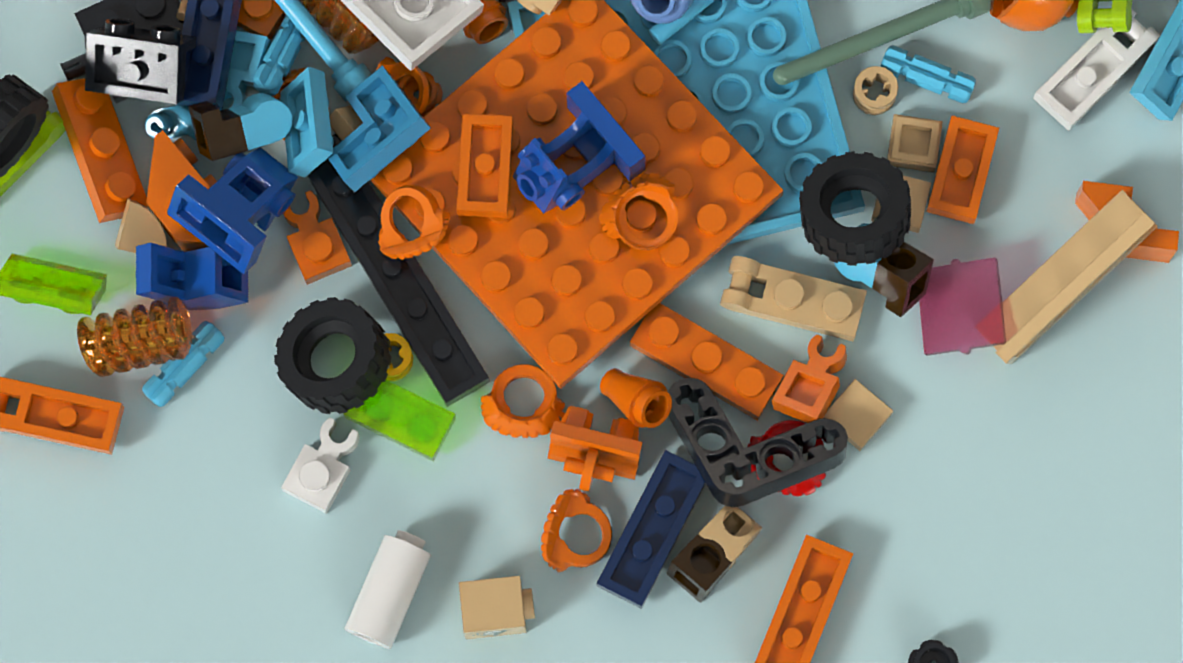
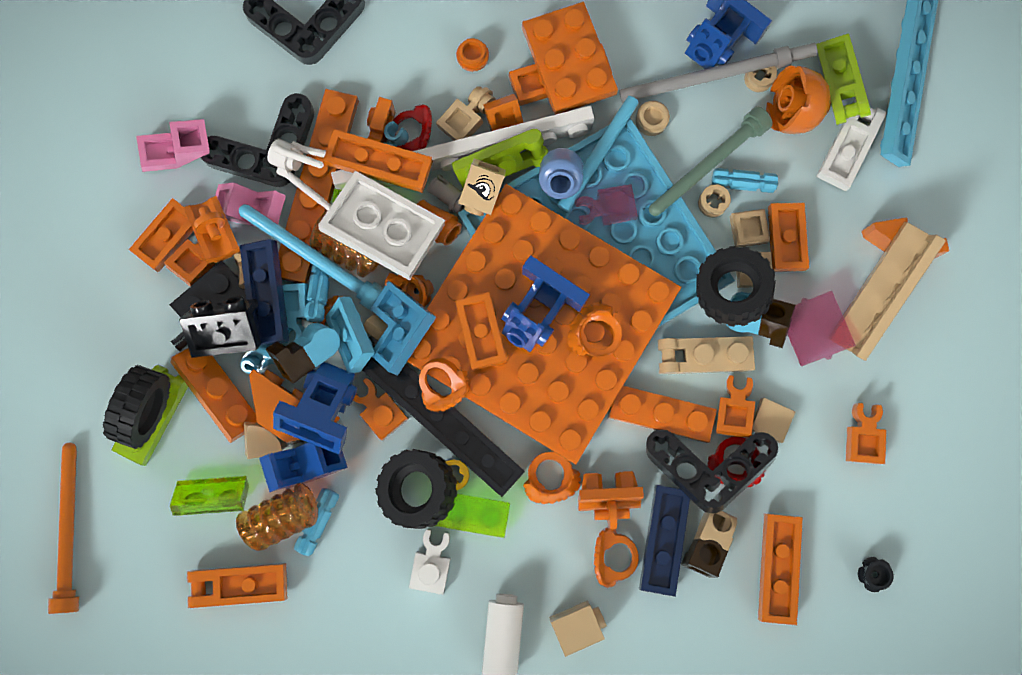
camera: 20 degrees left, 5 degrees up
(638, 398) = (628, 455): orange cone -> none
(727, 53) = (613, 205): none -> clear pink plate
(980, 479) = (866, 442): none -> orange plate

